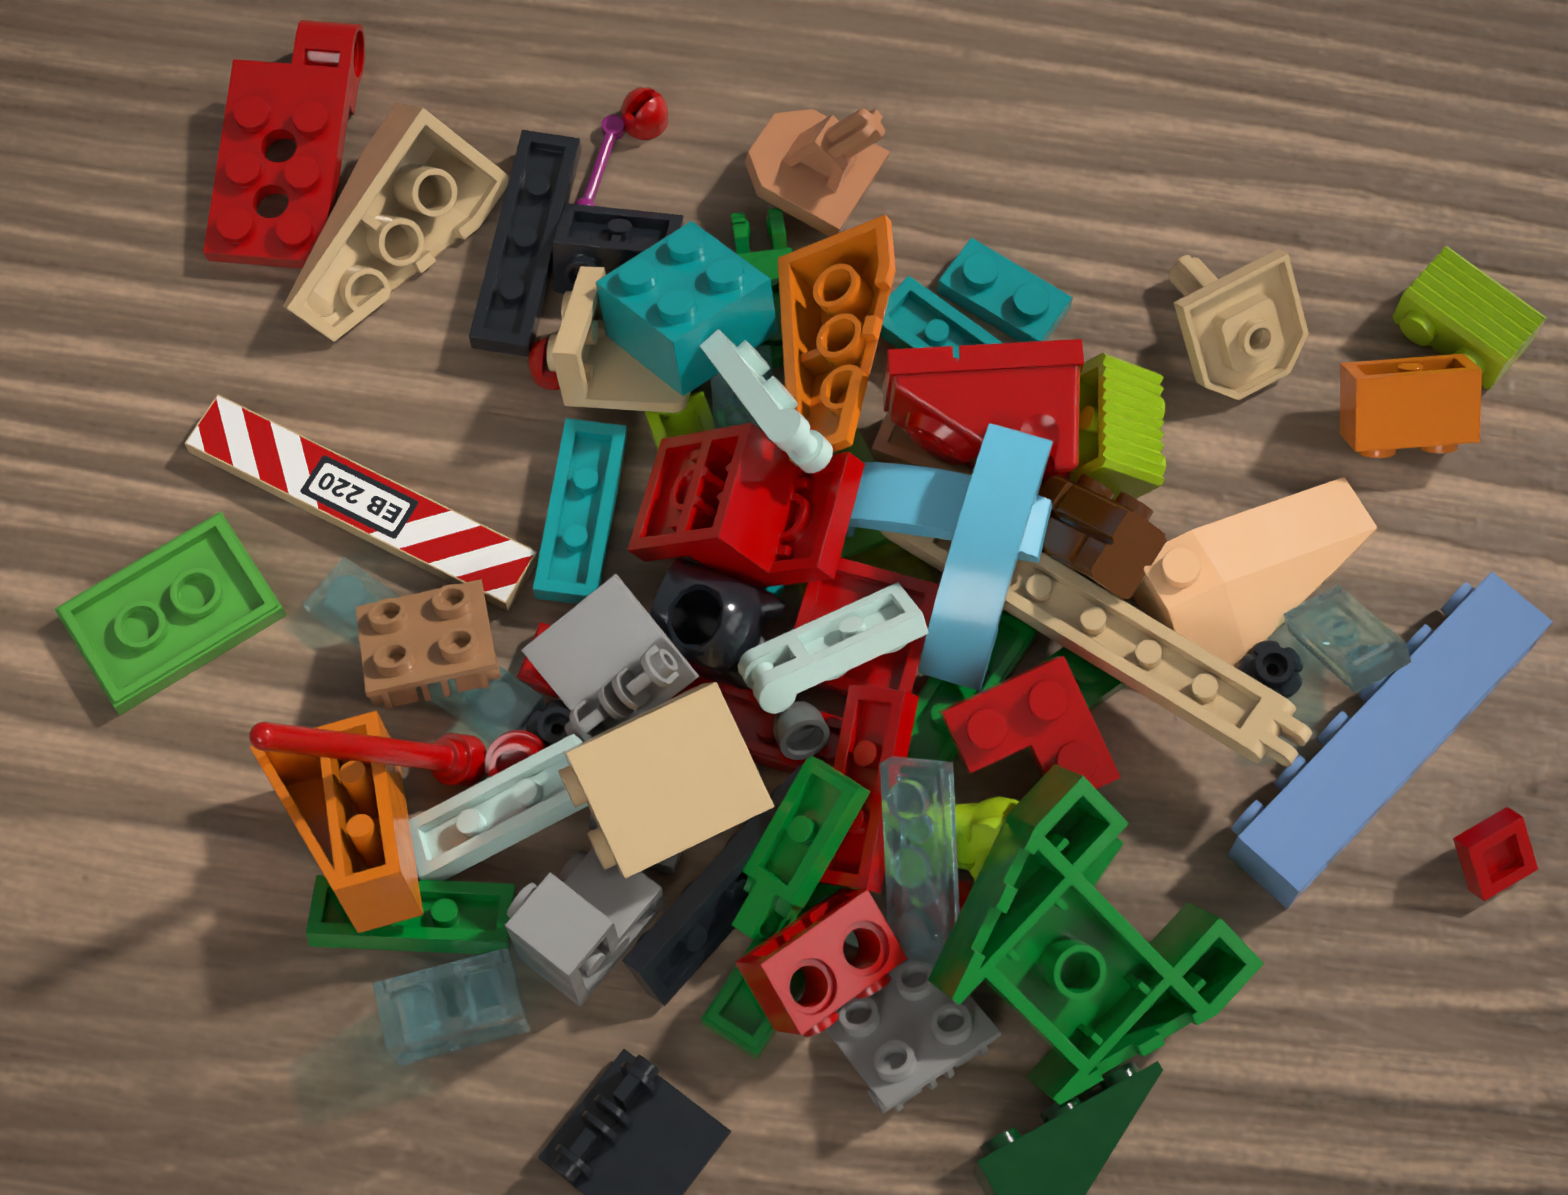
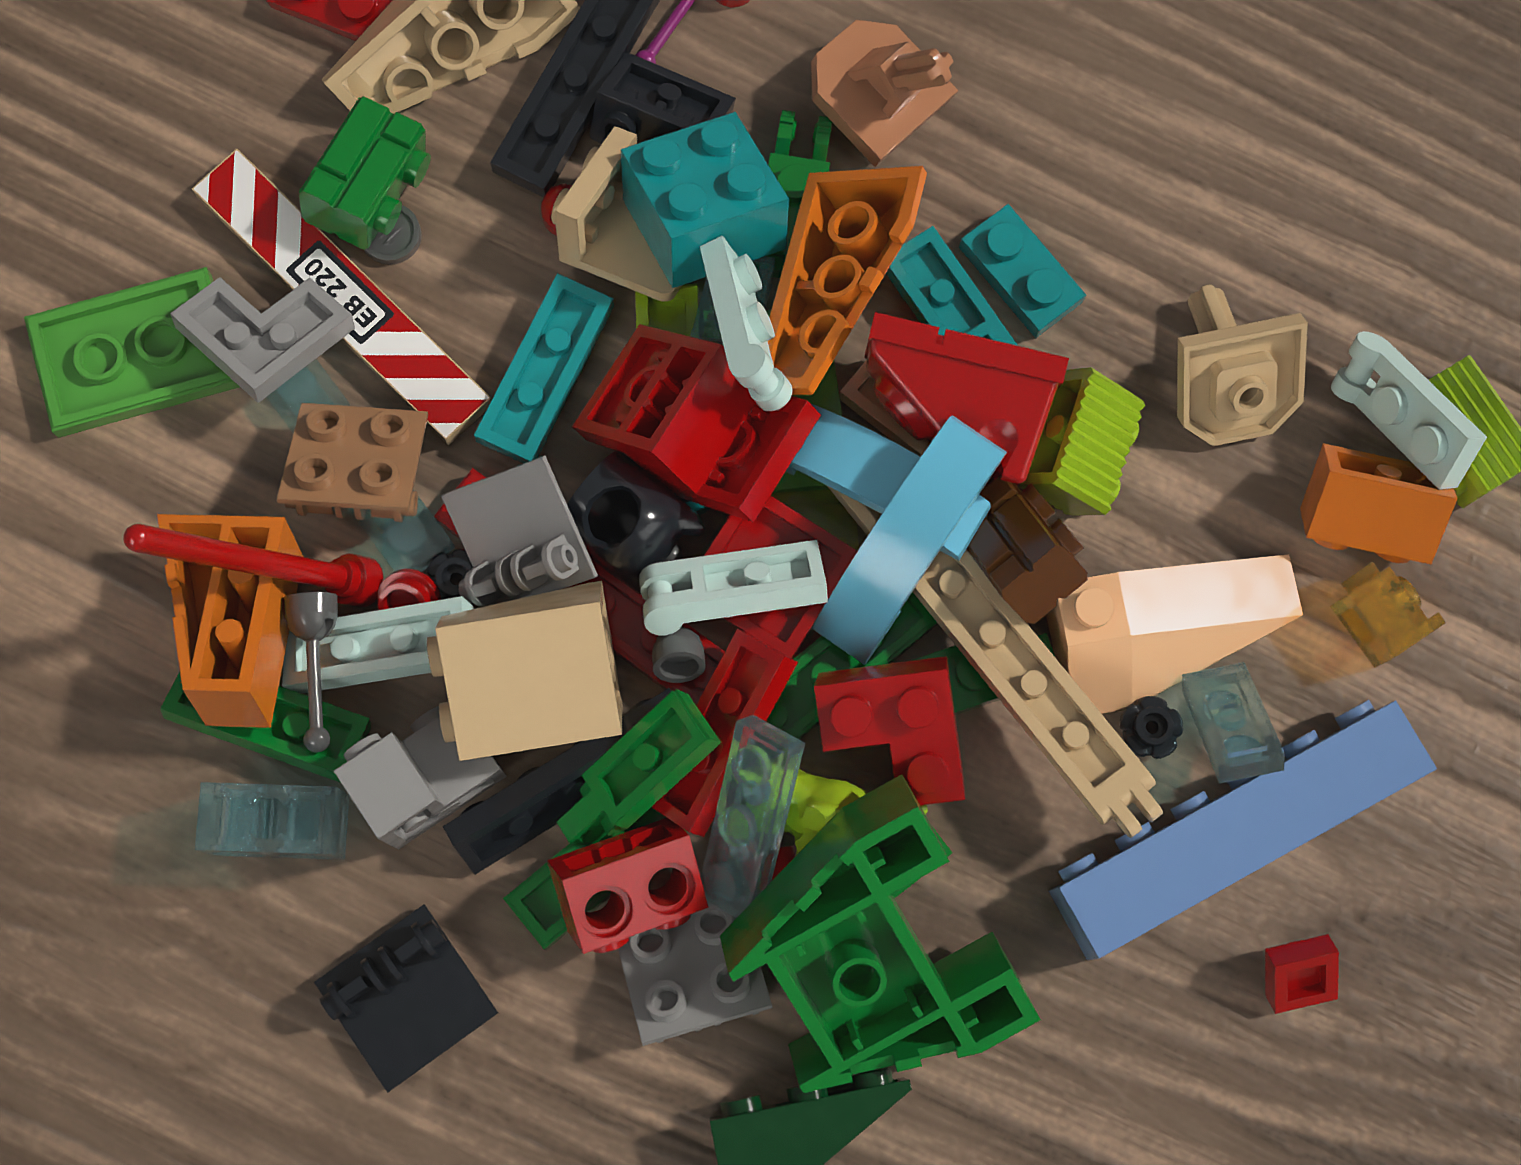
camera: 10 degrees right, 10 degrees up
(298, 565) = (266, 347): none -> light grey plate
(351, 380) = (365, 173): none -> green brick
(389, 432) = (399, 243): none -> flat silver piece
(431, 800) = (312, 618): none -> dark grey hinge
(1409, 309) = (1409, 410): none -> light aqua plate
(1451, 502) = (1383, 613): none -> clear yellow brick

